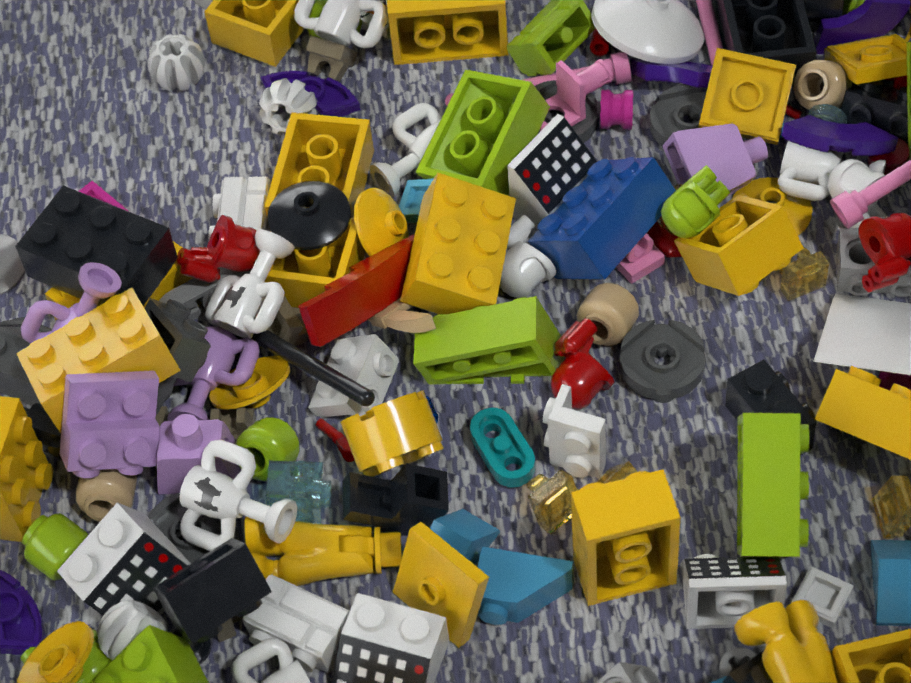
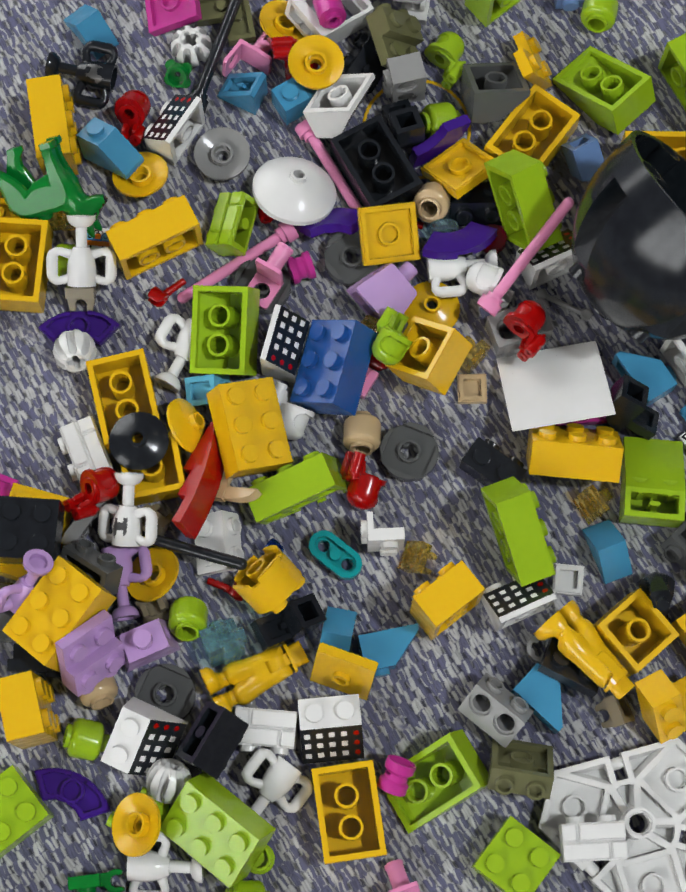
camera: 30 degrees left, 20 degrees up
(226, 499) = (182, 670): white piece -> none
(425, 91) = (160, 297): none -> red hand
(551, 499) = (383, 581): clear yellow tile -> none
(784, 316) = (472, 388): none -> tan tile

